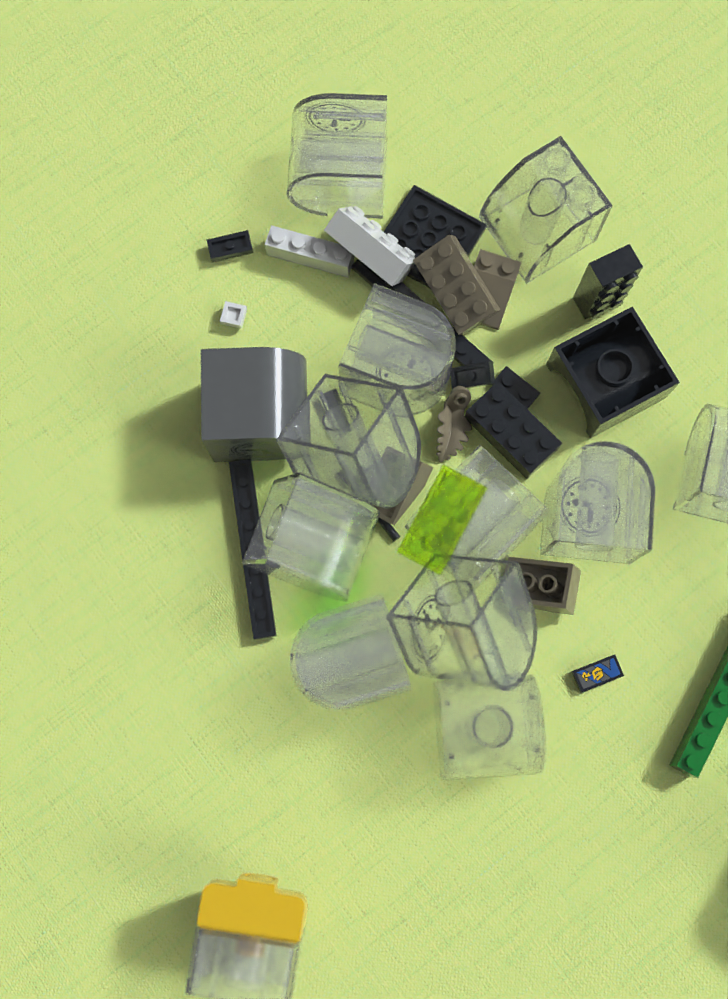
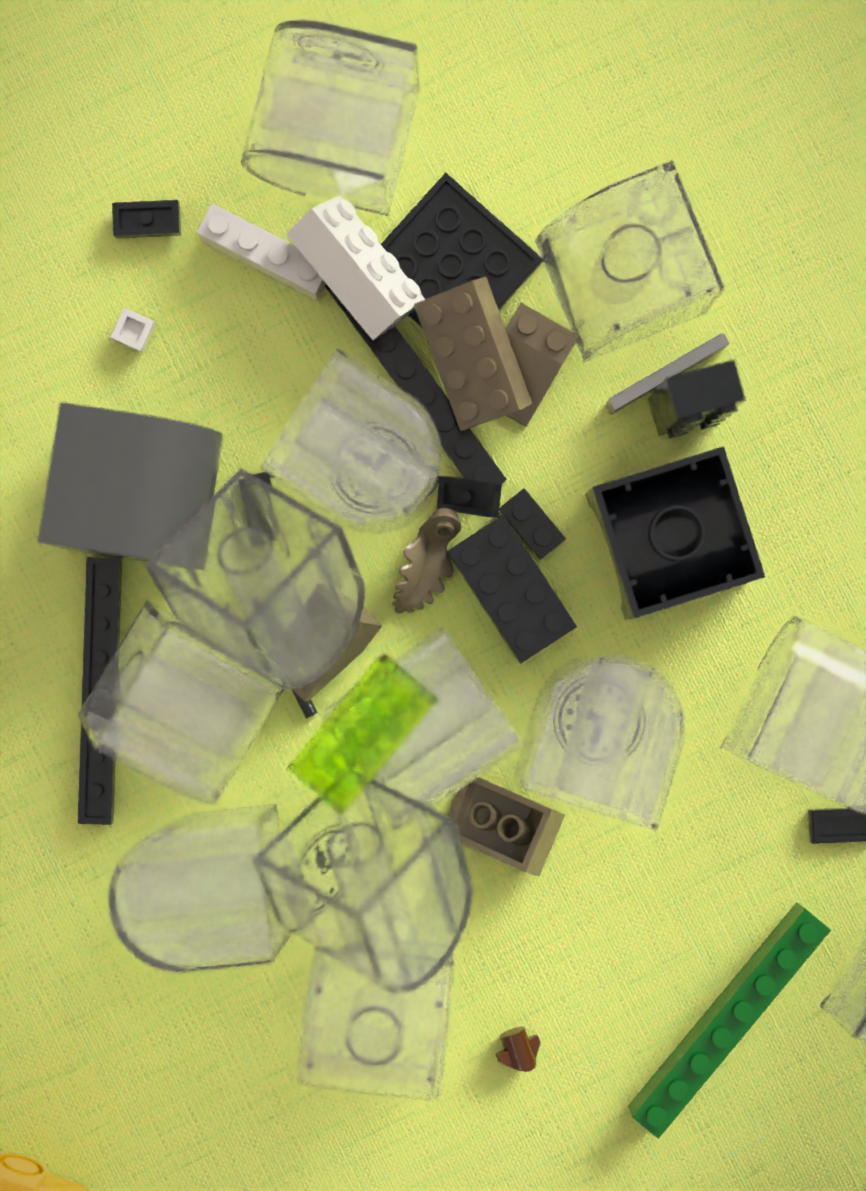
camera: 10 degrees right, 10 degrees up
(571, 287) = (674, 368): none -> light grey tile
(586, 738) = (518, 1050): none -> reddish brown piece
(597, 673) = (556, 962): tile -> none

